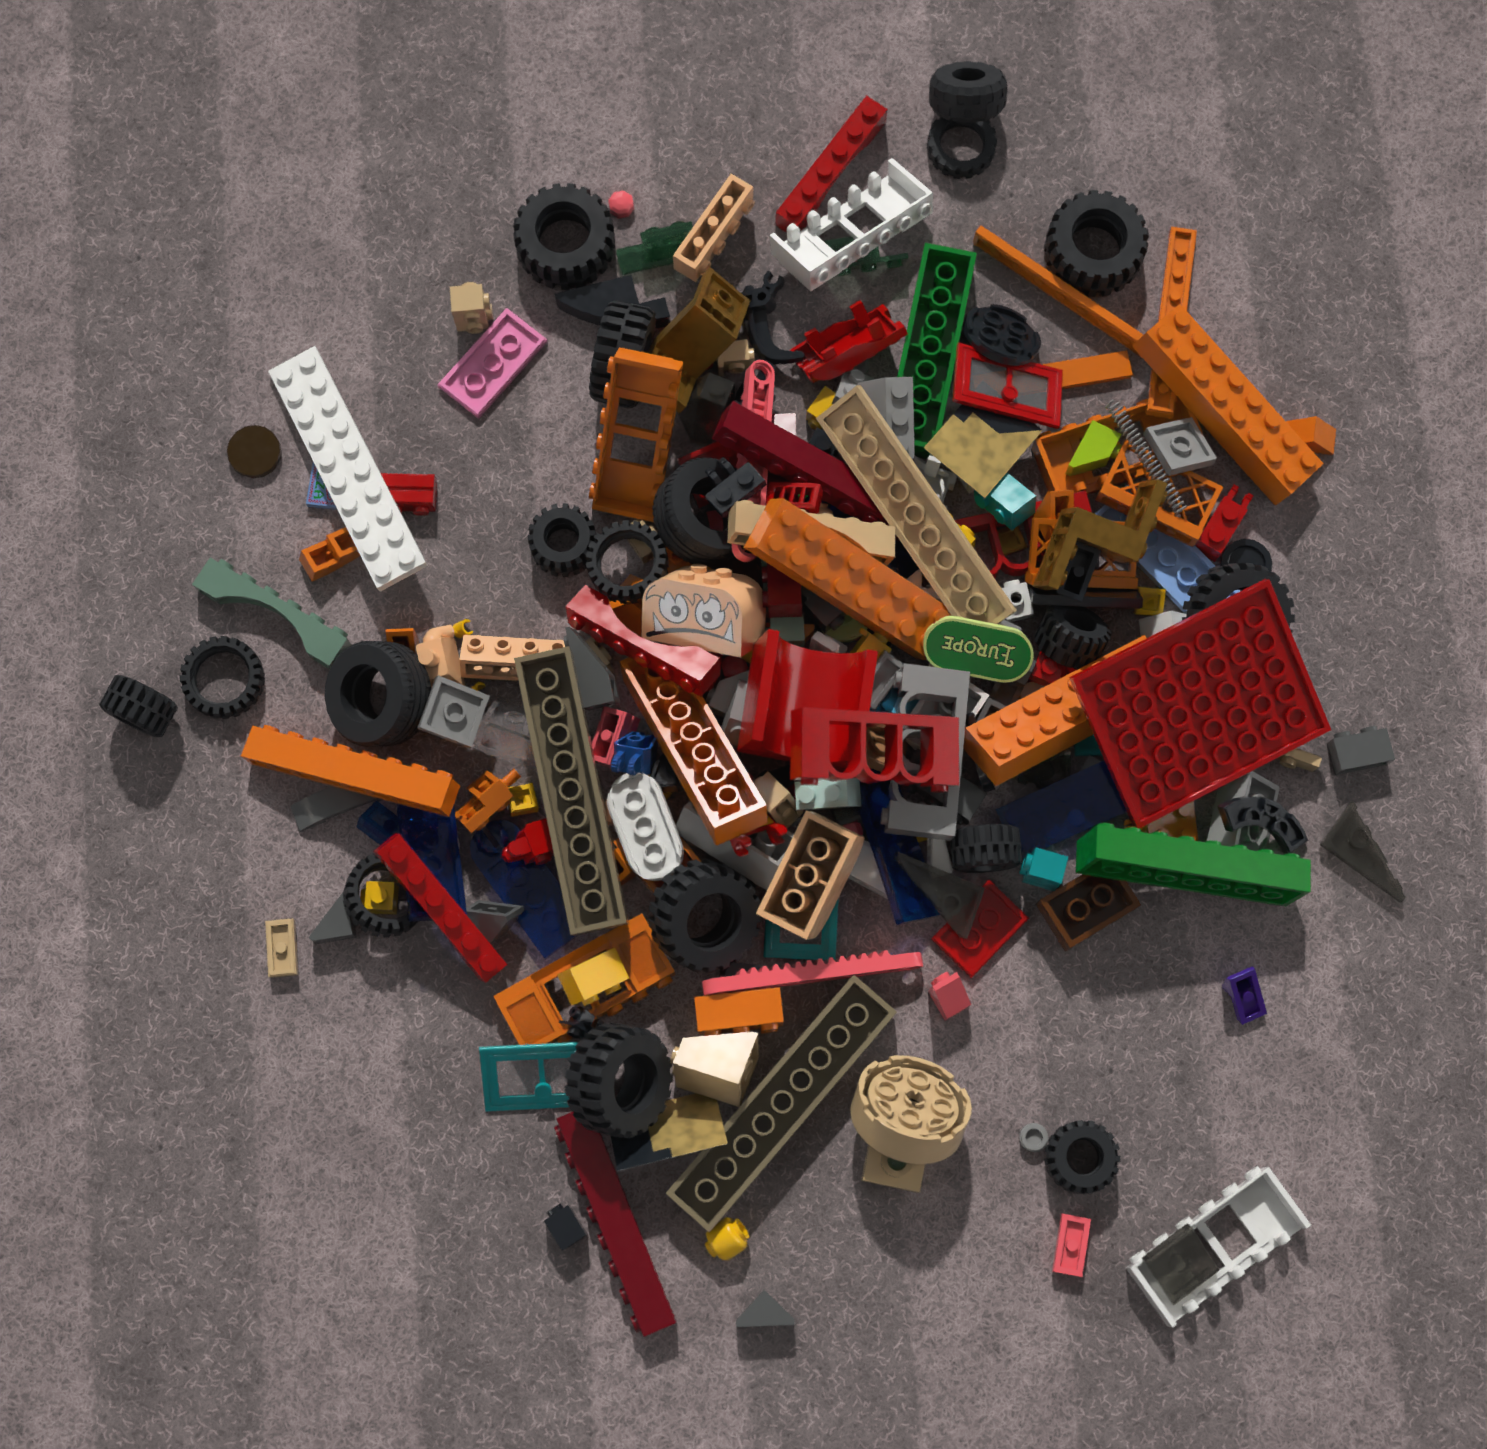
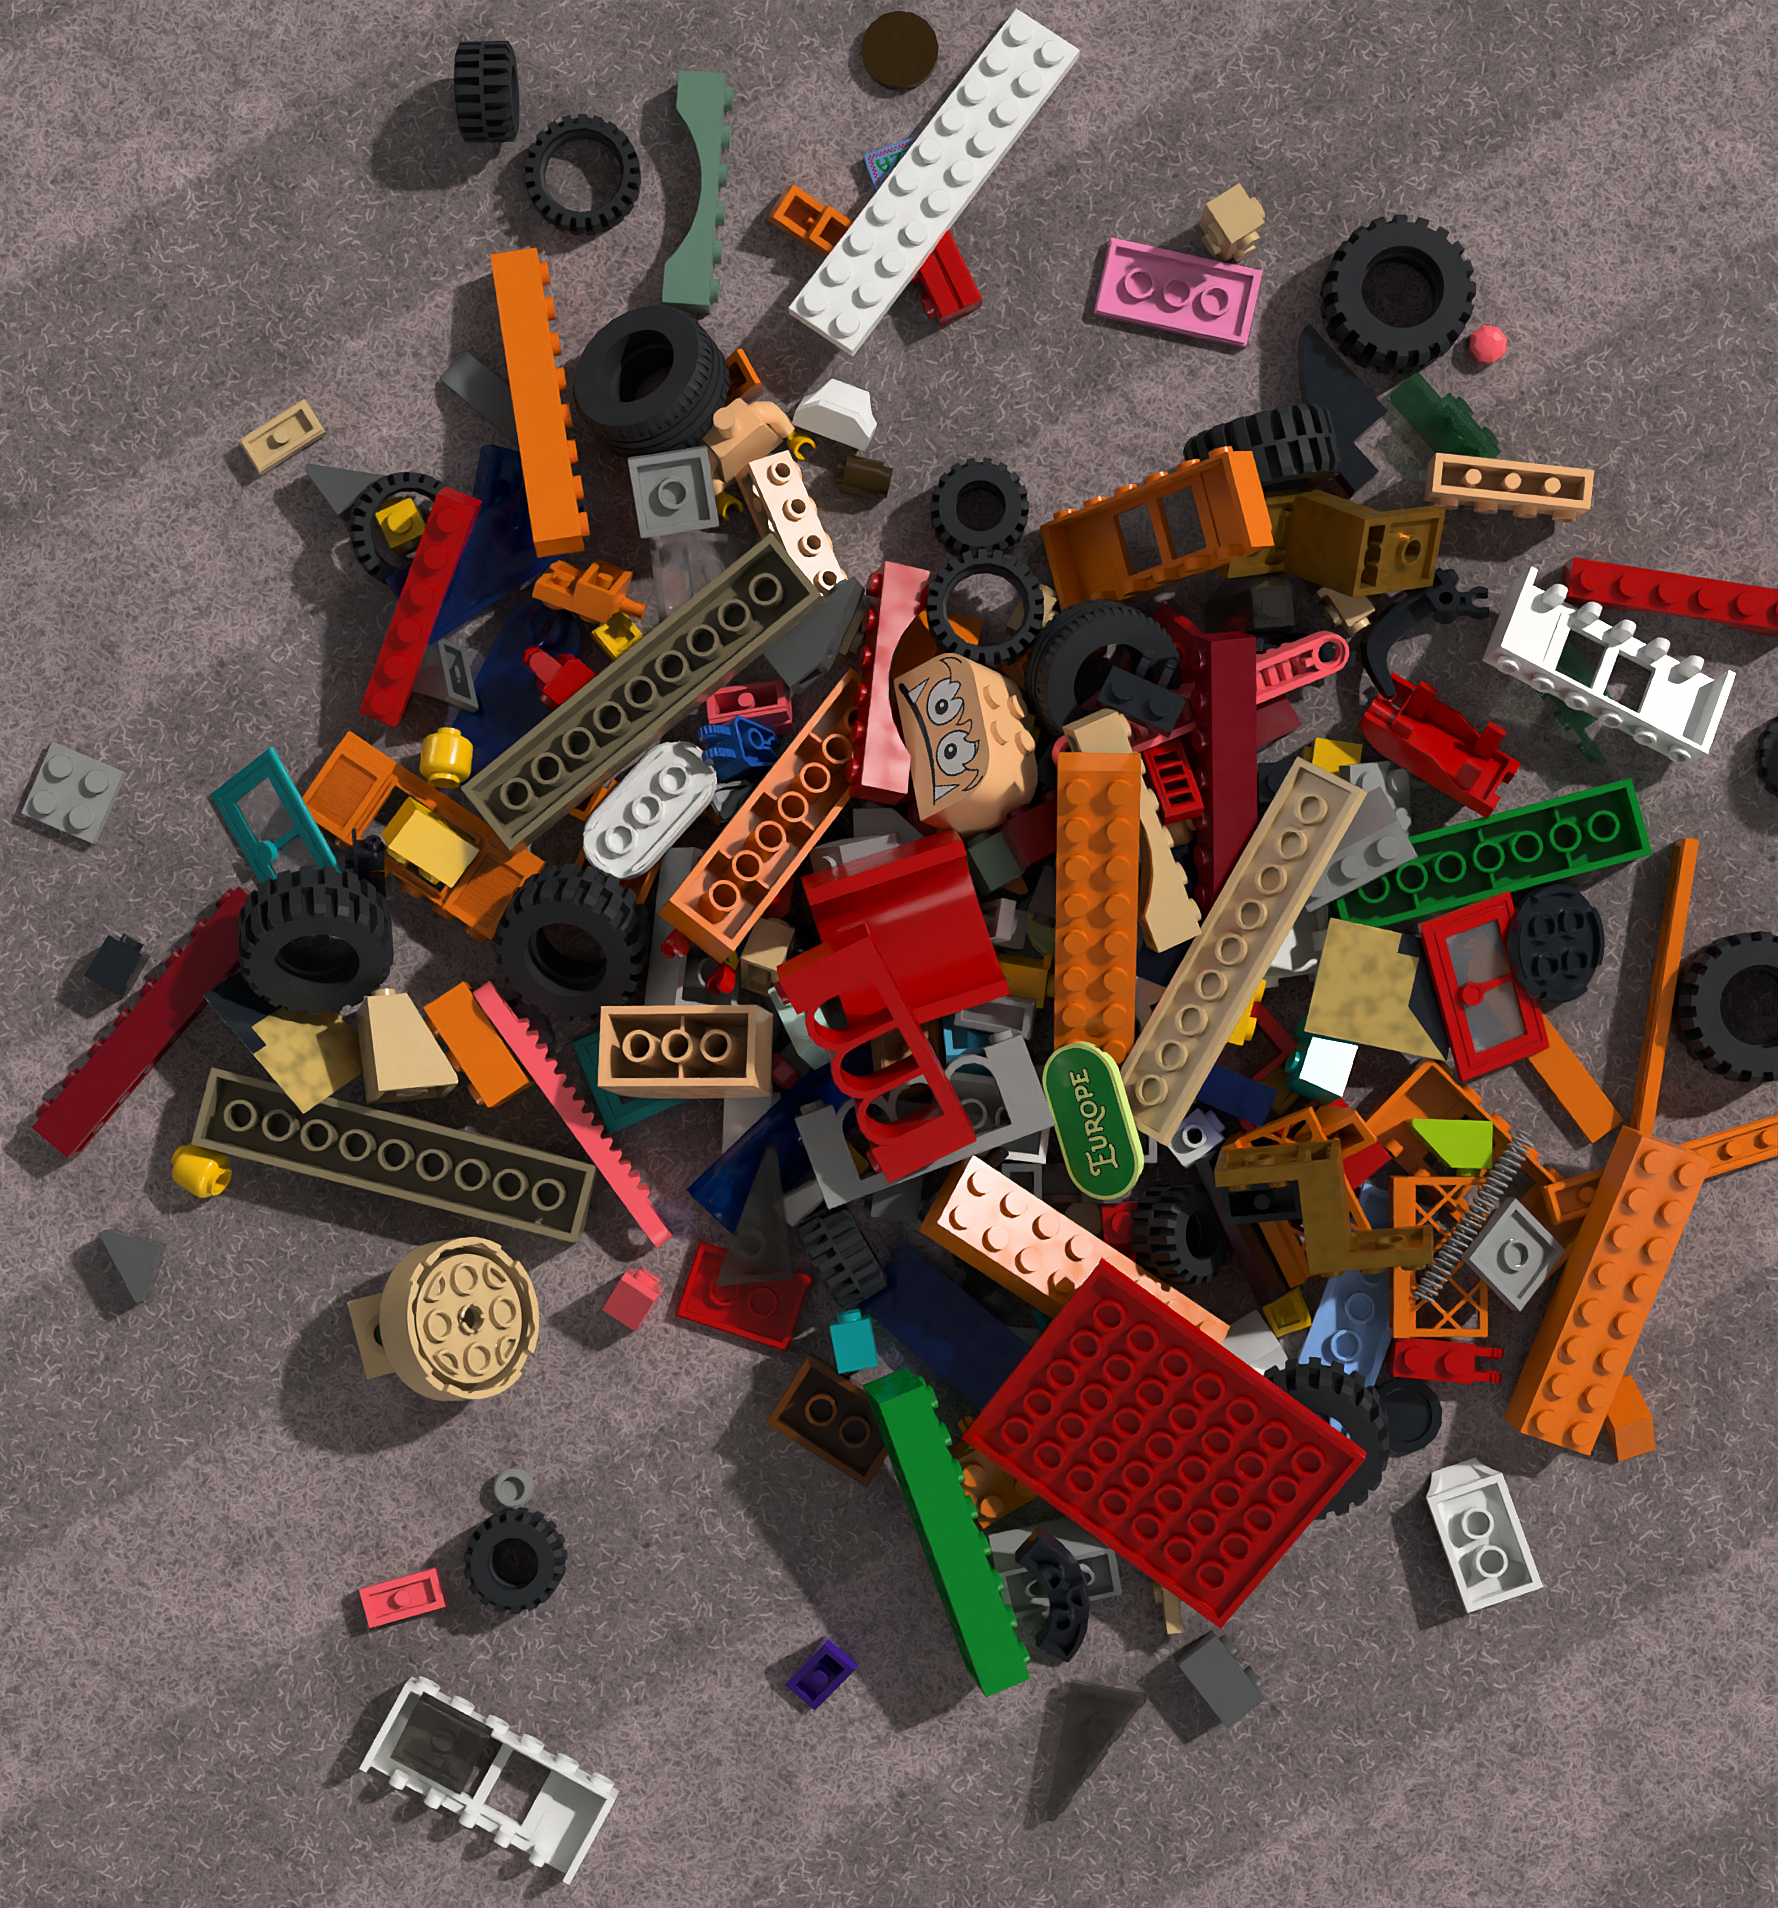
camera: 70 degrees right, 10 degrees up
(437, 1201) = (73, 793): none -> light grey plate
(456, 596) = (838, 414): none -> white slope
(504, 600) = (863, 477): none -> dark brown brick
(544, 941) = (446, 758): none -> yellow head
(1006, 557) = (1236, 1095): none -> clear blue brick
(1342, 552) = (1481, 1535): none -> white slope

